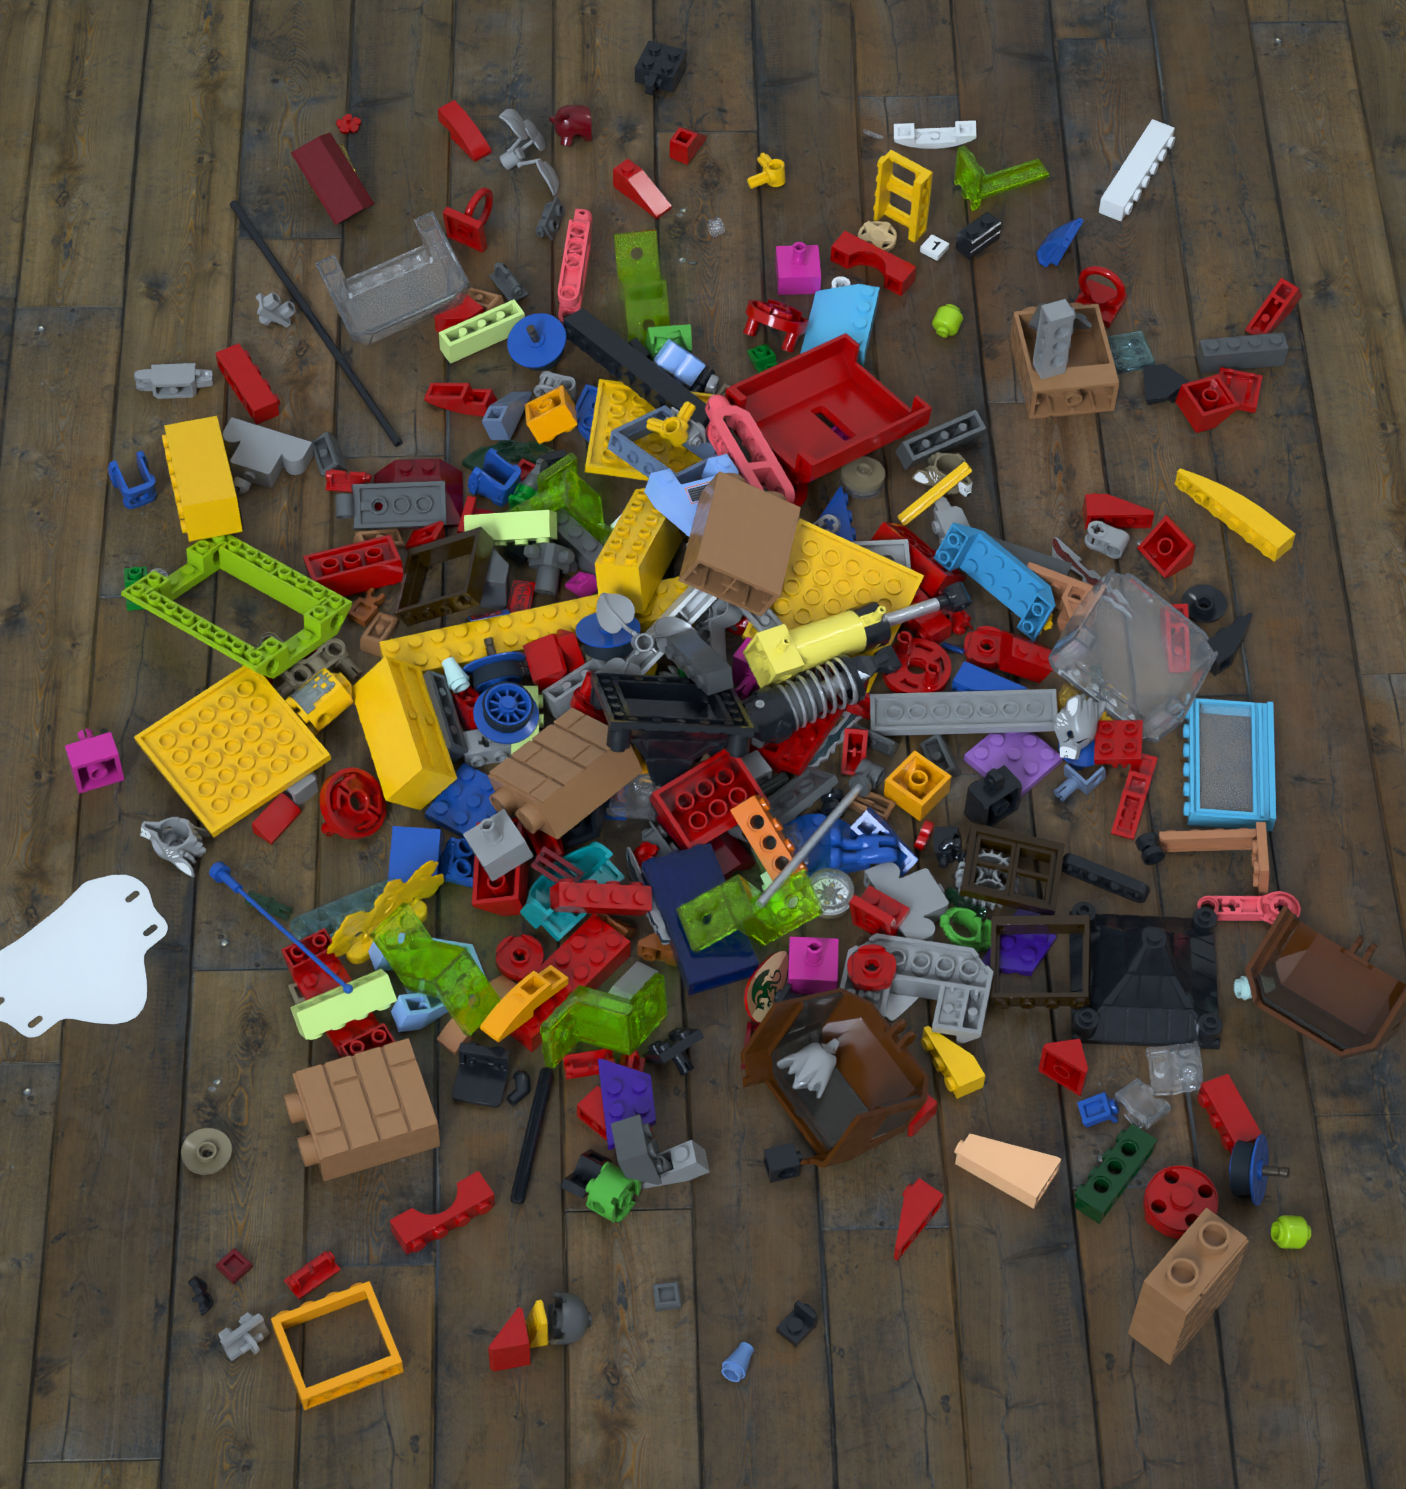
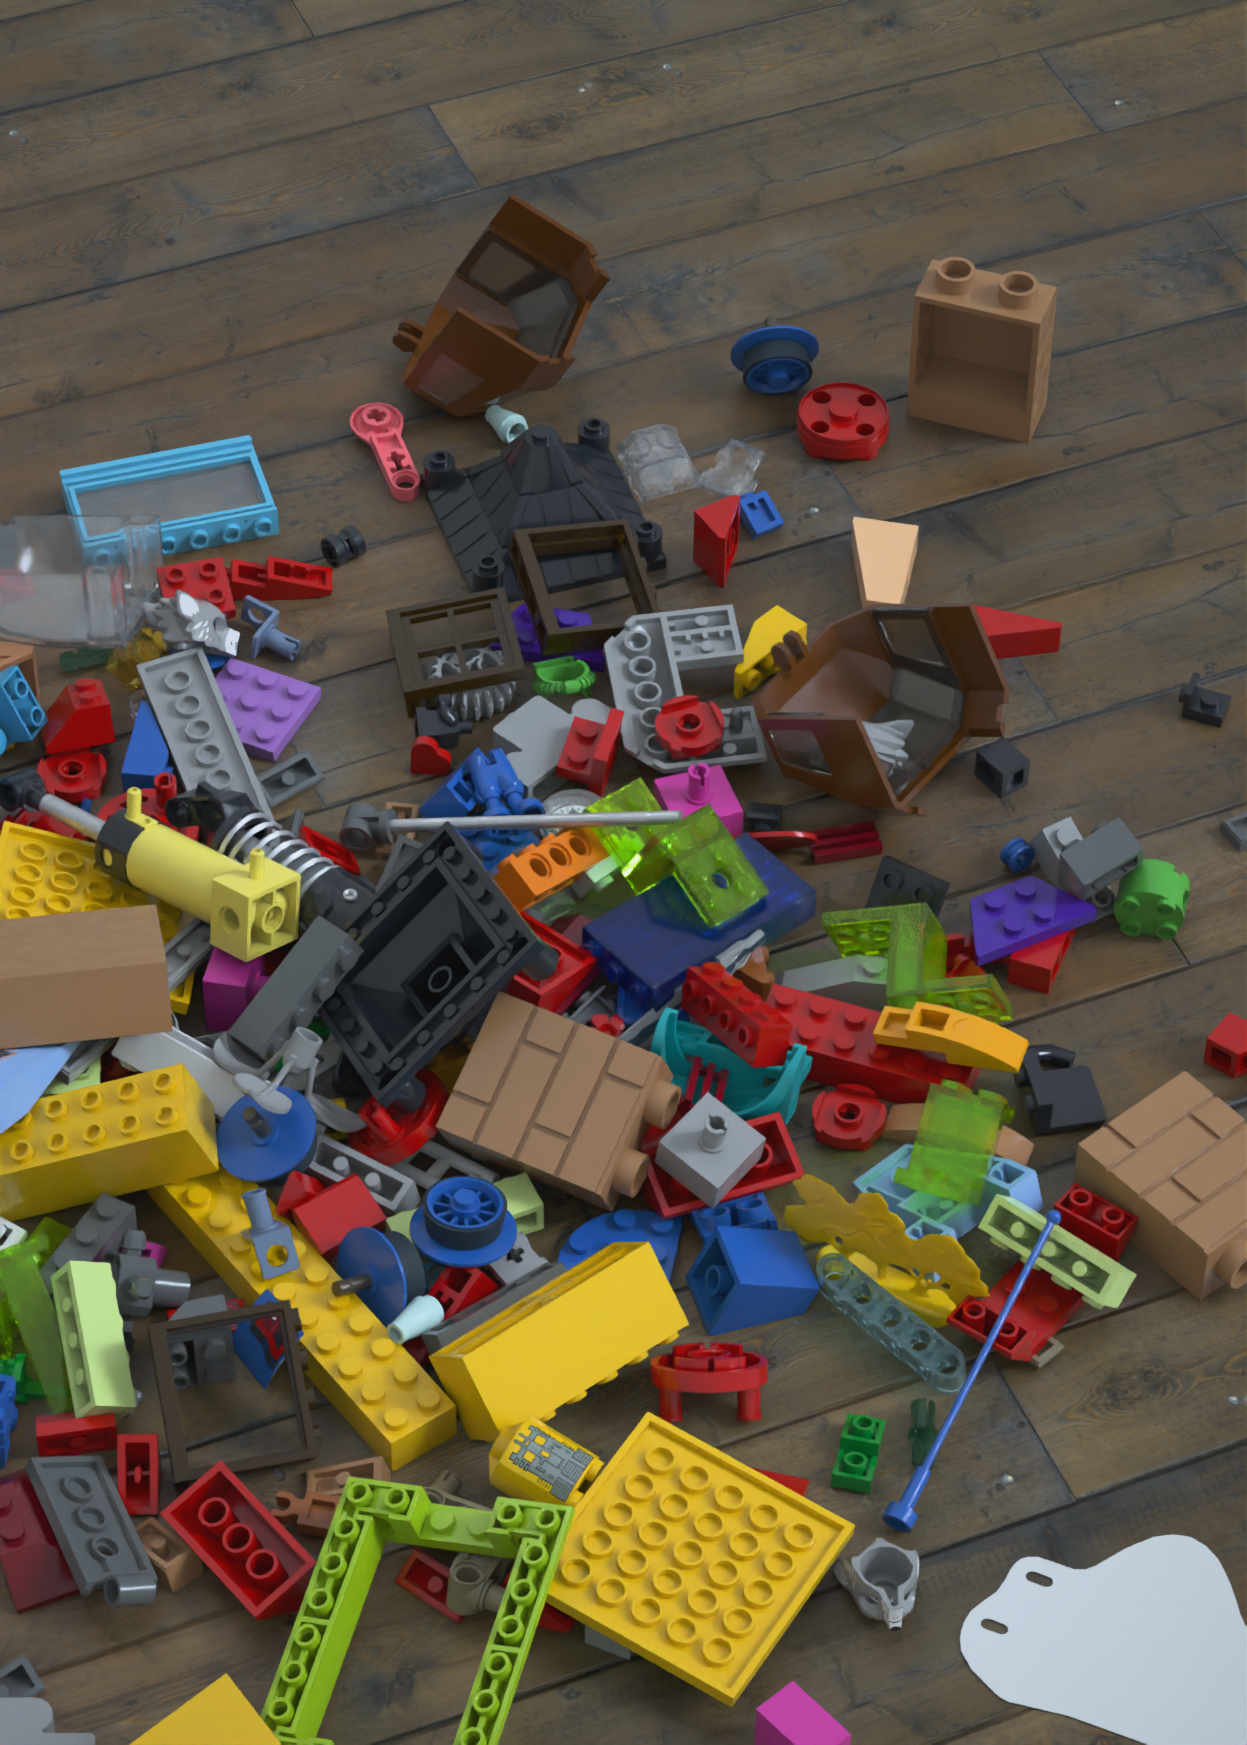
camera: 110 degrees left, 10 degrees down
(274, 872) = (858, 1453): none -> green slope
(342, 481) = (49, 1634): red hinge -> none
(531, 1136) = (1115, 1021): black axle -> none
(540, 614) = (266, 1233): none -> sand blue bracket
(588, 1167) = (1121, 950): black slope -> none
(698, 1137) = (1017, 855): none -> blue bush
(917, 785) = (358, 770): light orange slope -> none
(959, 901) = (517, 699): clear green axle -> none
(993, 797) = (346, 692): black hinge -> none
(1097, 1204) = (836, 481): dark green brick -> none
(1105, 878) = (411, 569): black beam -> none
(1225, 840) = (316, 438): nougat bracket -> none
(1227, 1112) = (702, 404): red brick -> none
(1290, 1232) = (829, 330): lime head -> none

